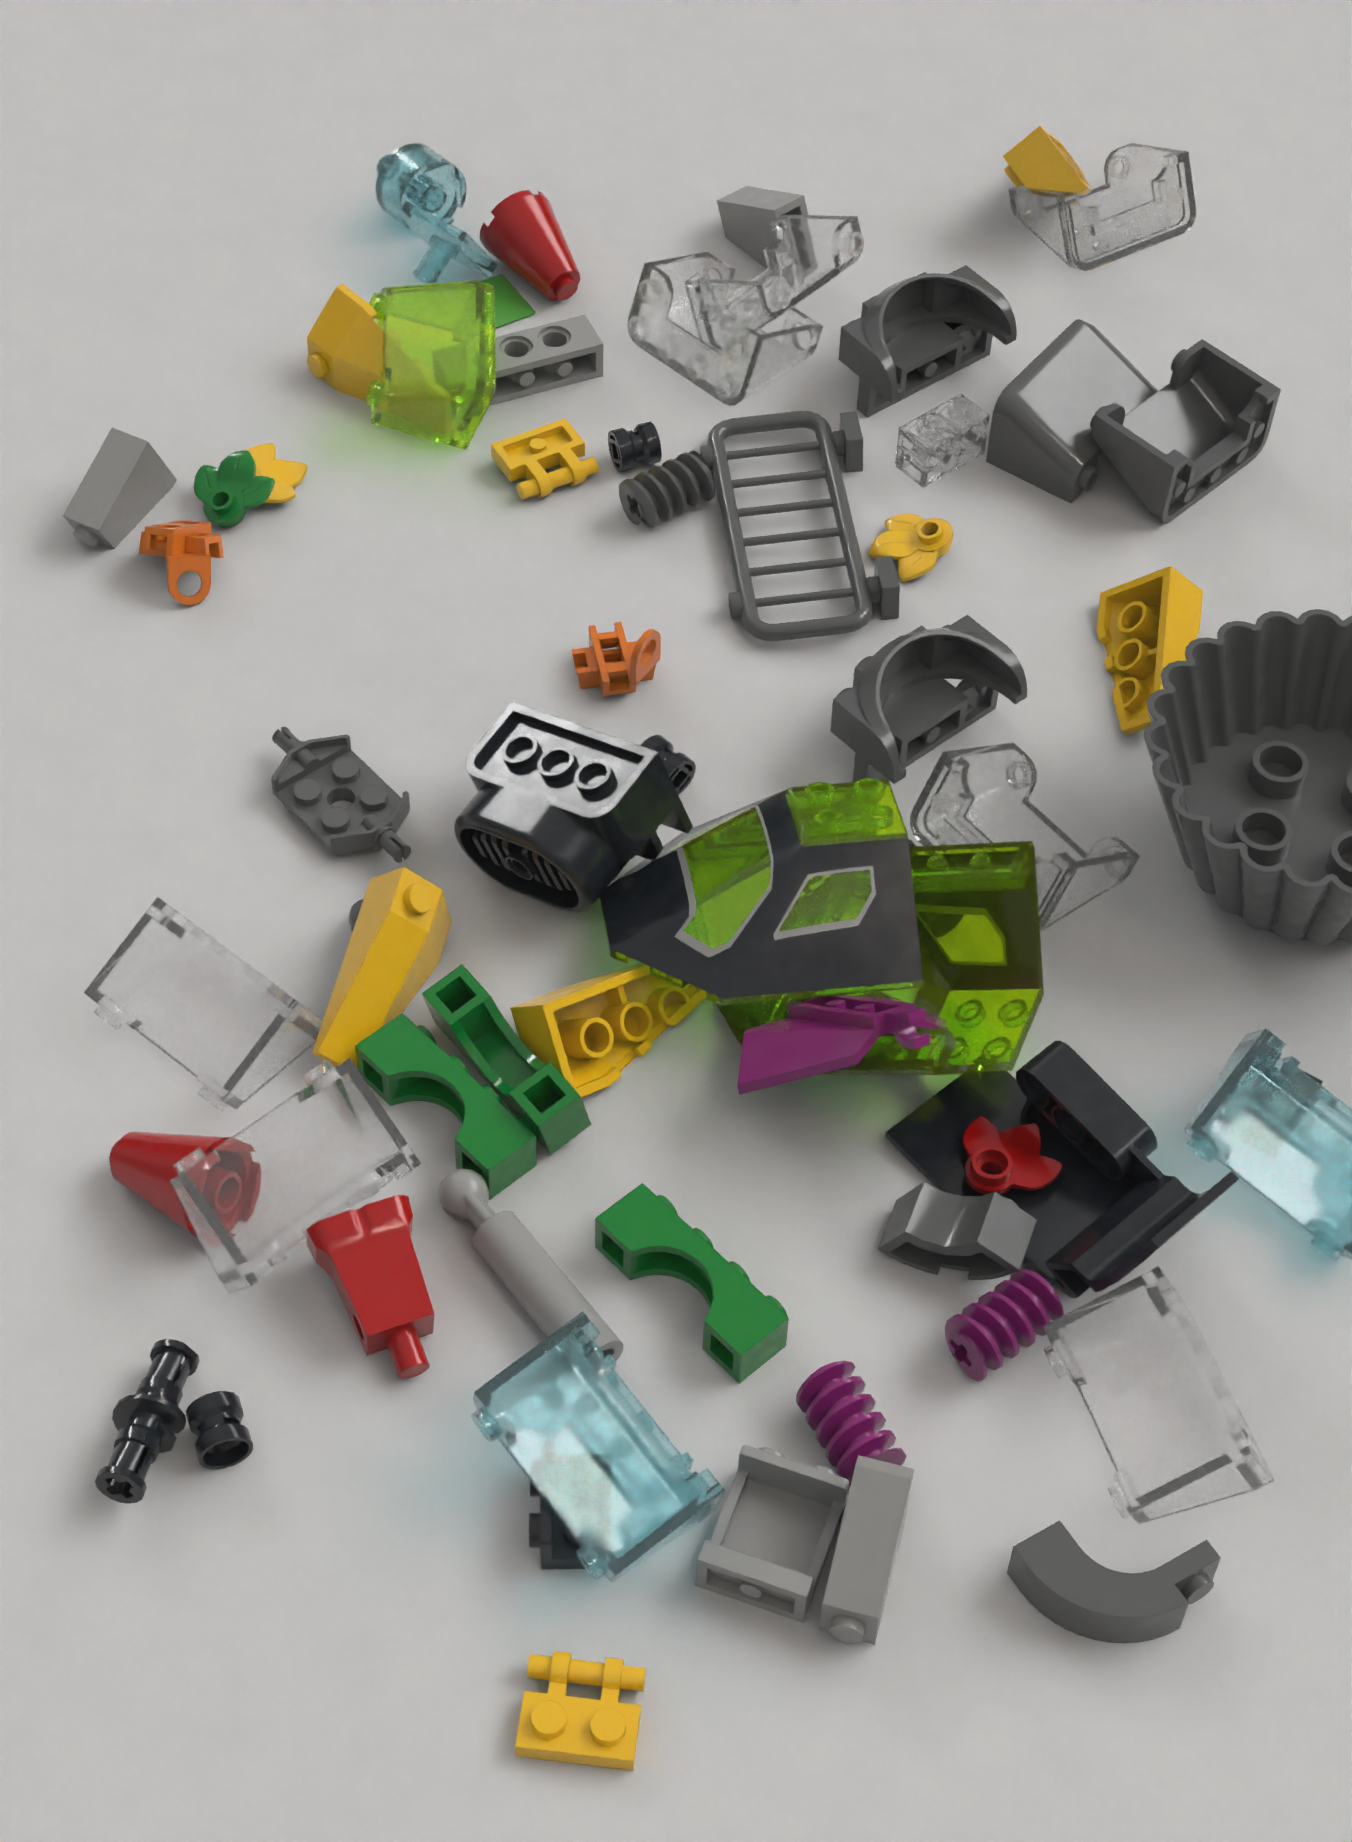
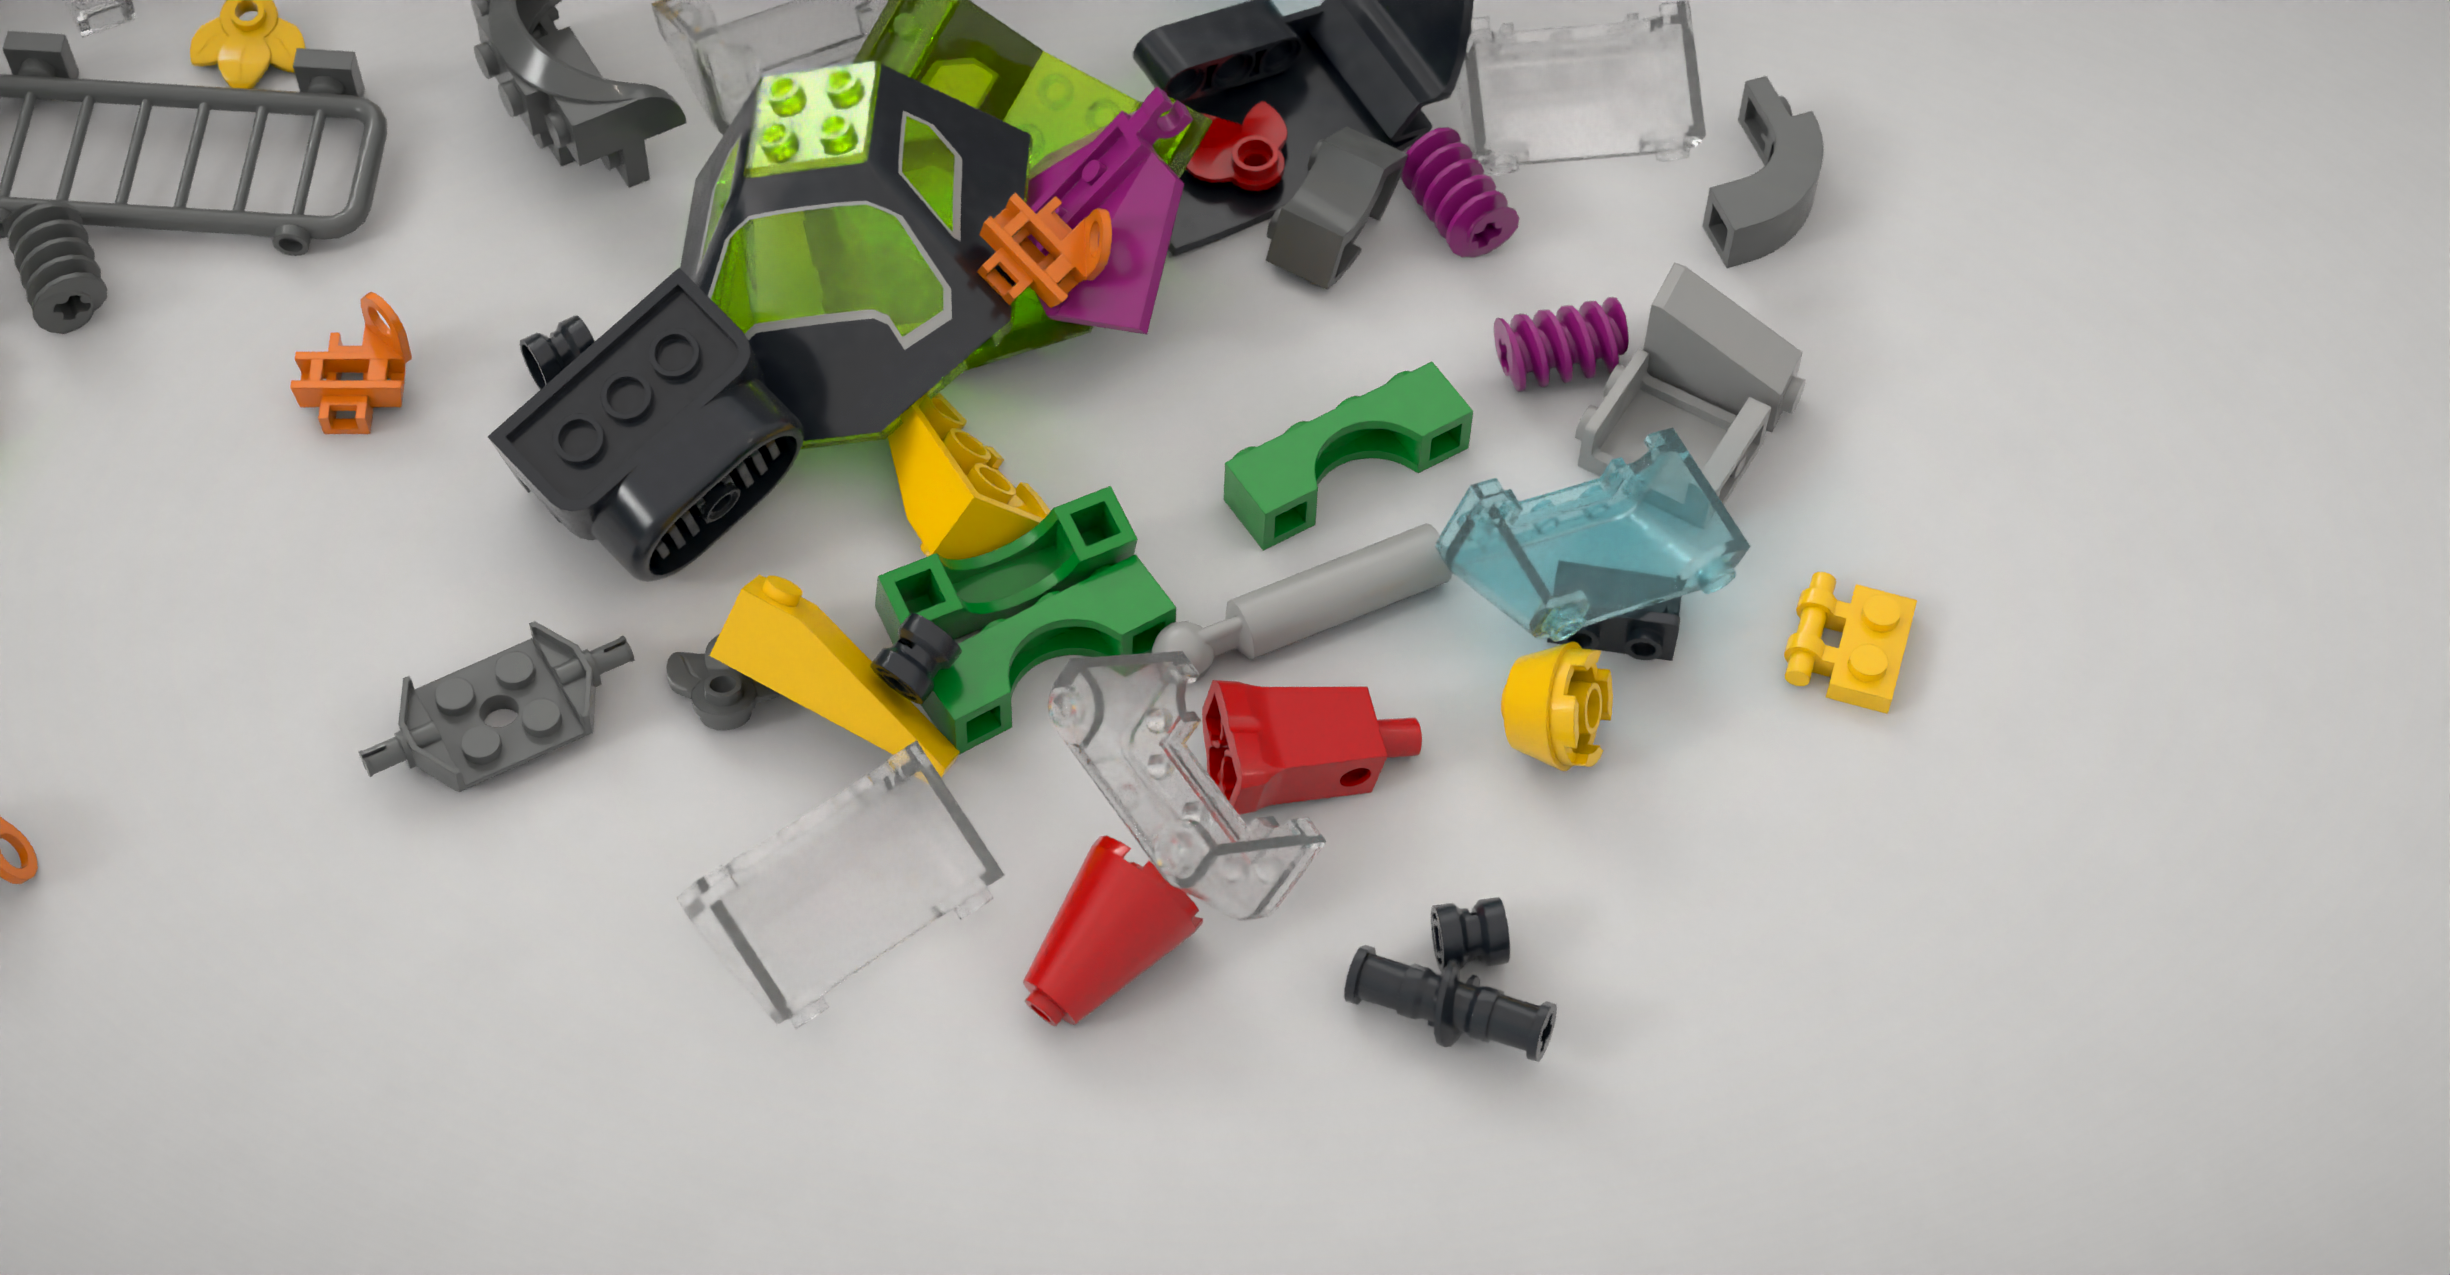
camera: 80 degrees left, 5 degrees up
(396, 1001) = (916, 658): none -> black wheel
(440, 1462) = (1557, 705): none -> yellow cone
(783, 996) = (1071, 254): none -> orange piece

